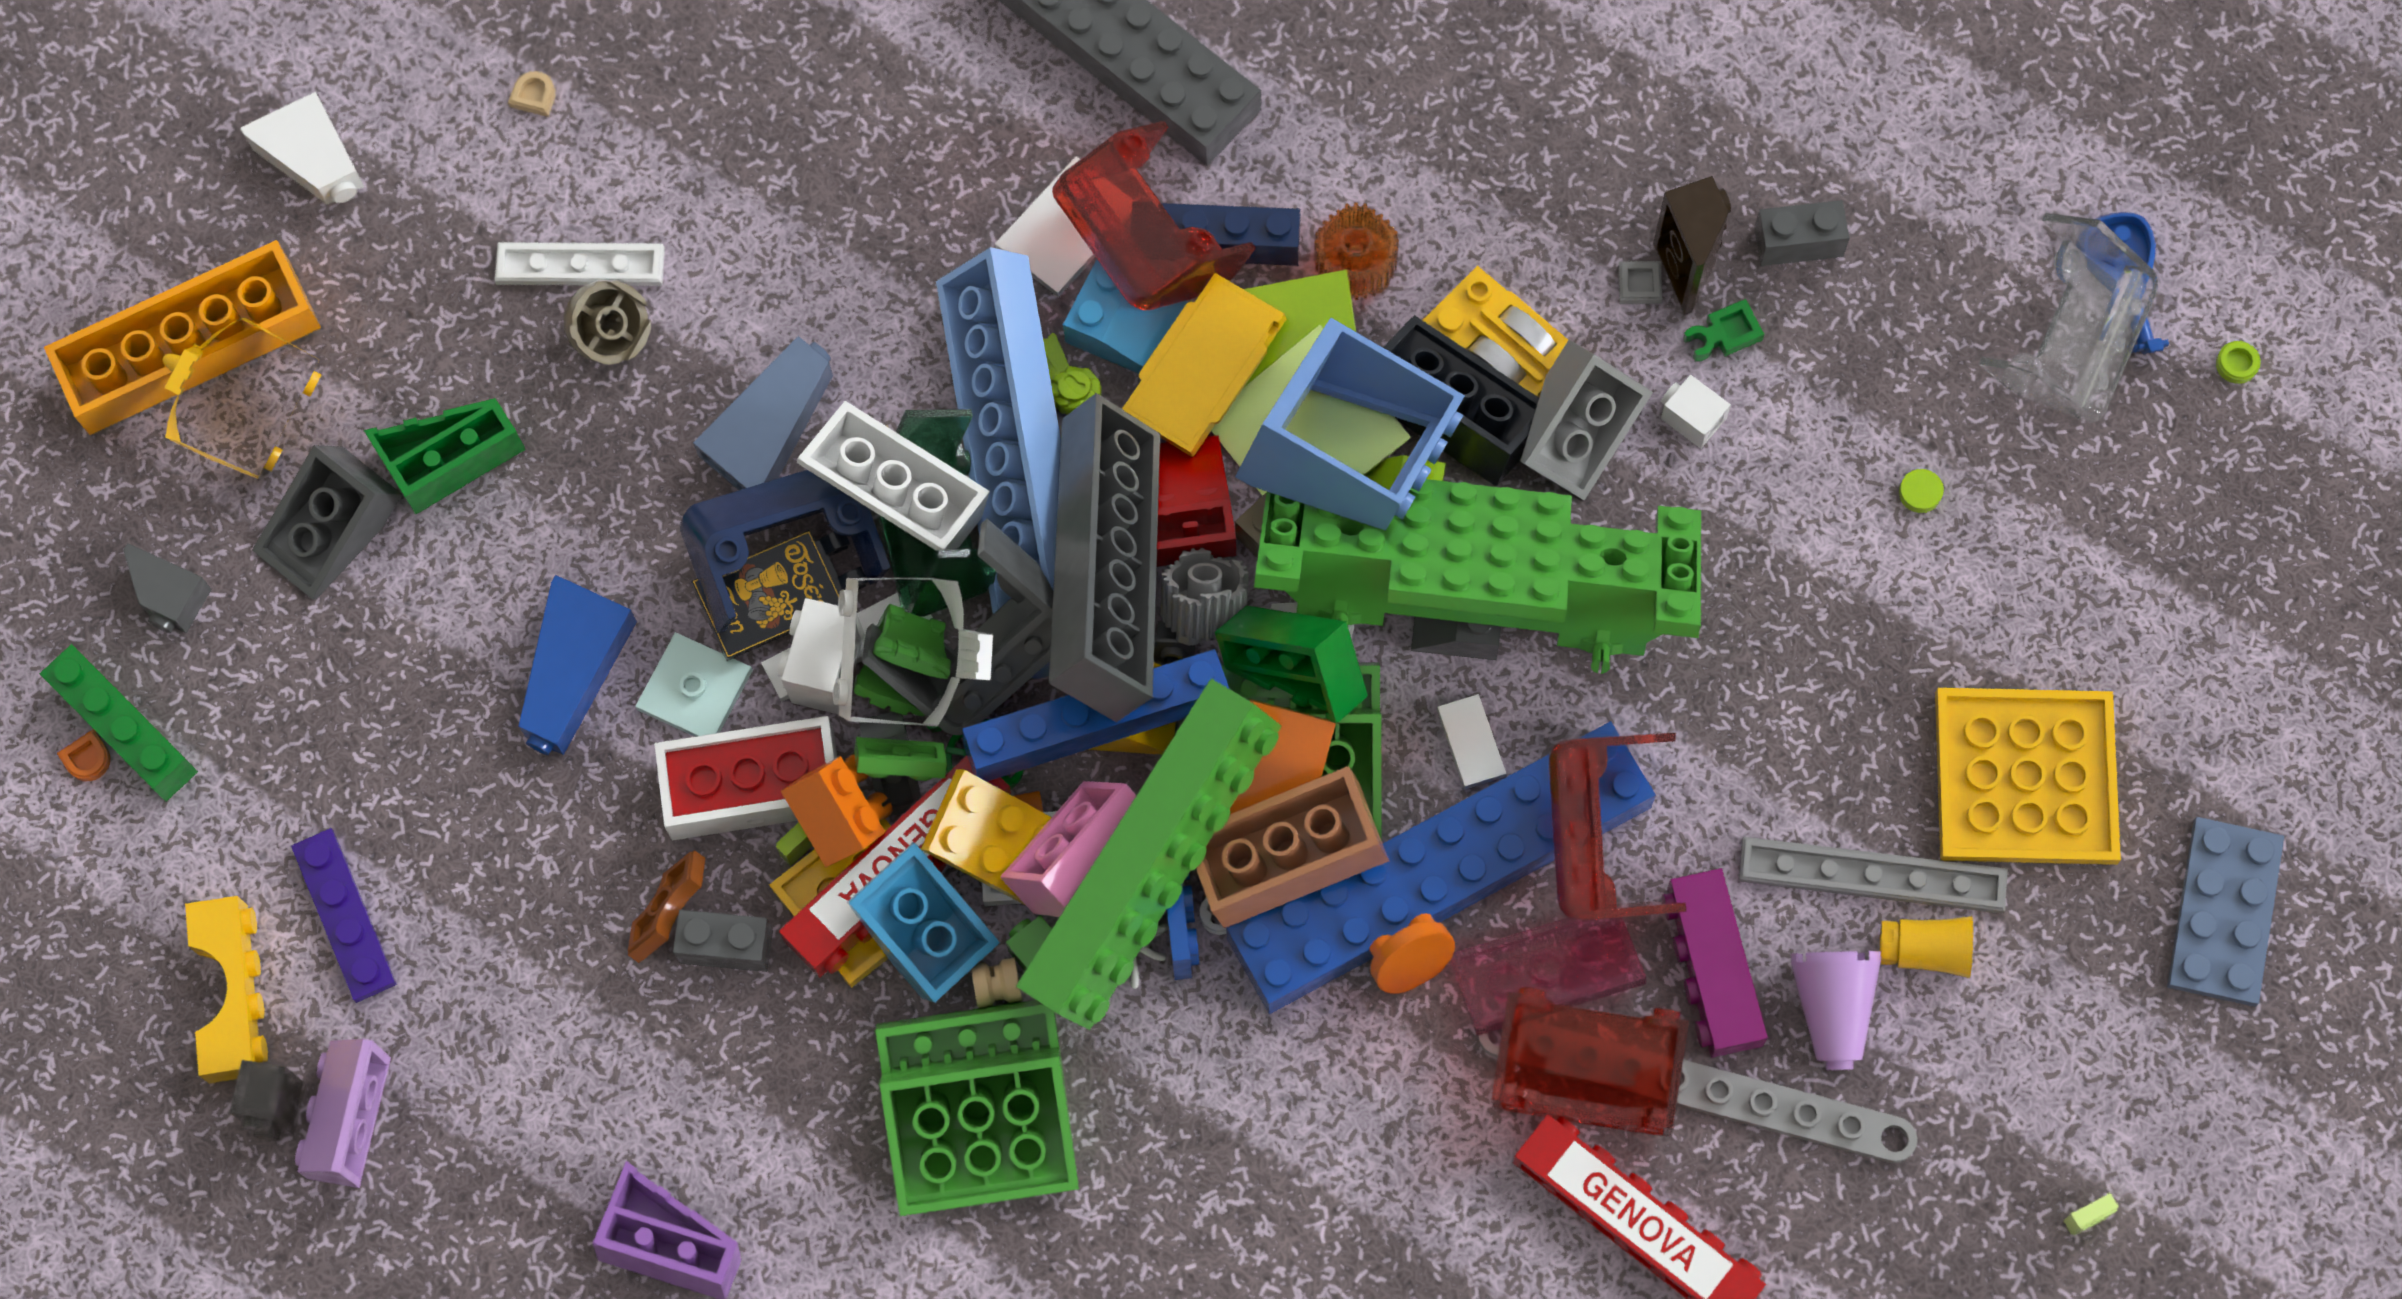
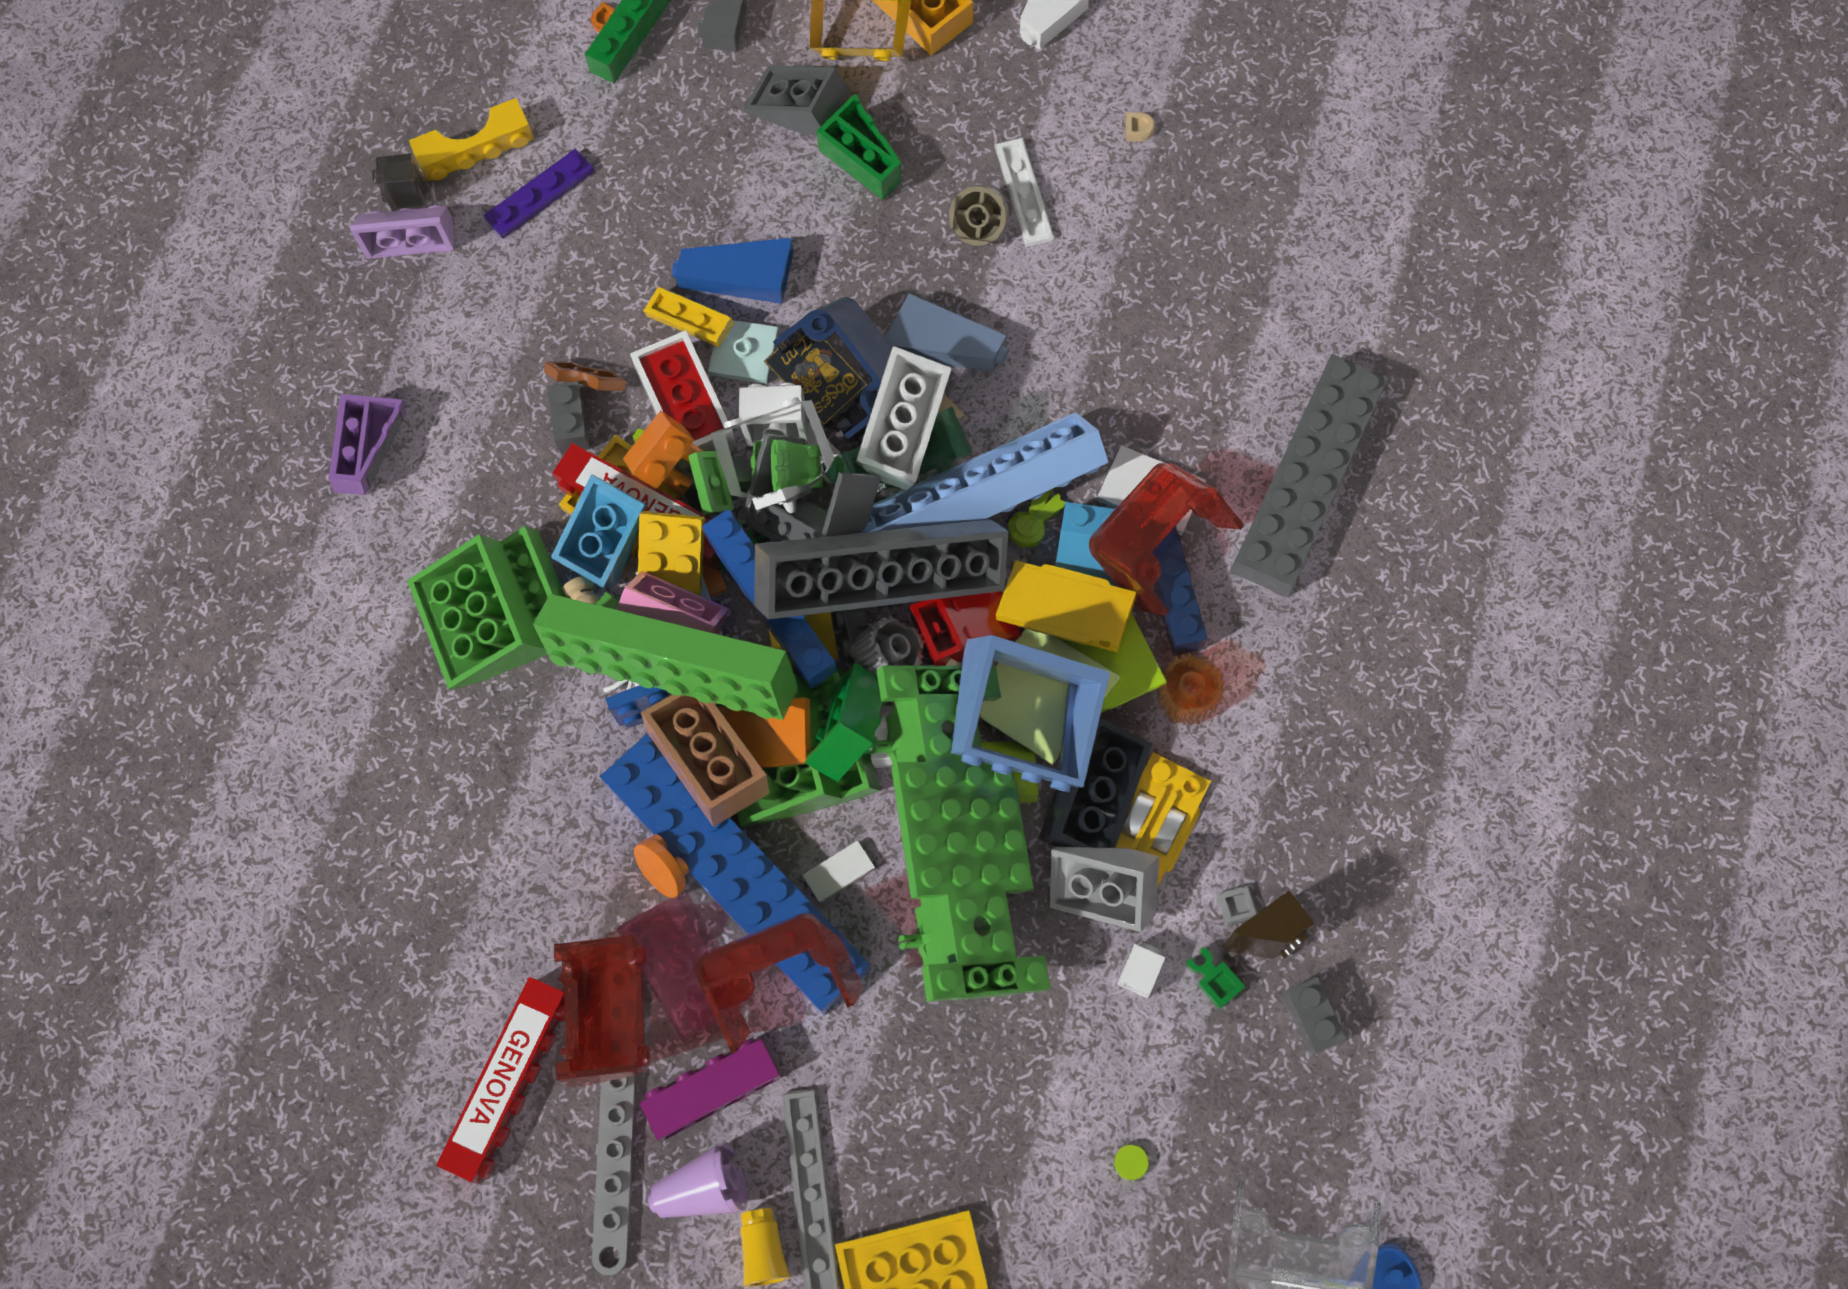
camera: 75 degrees right, 0 degrees up
(621, 745) = (689, 316): none -> yellow plate

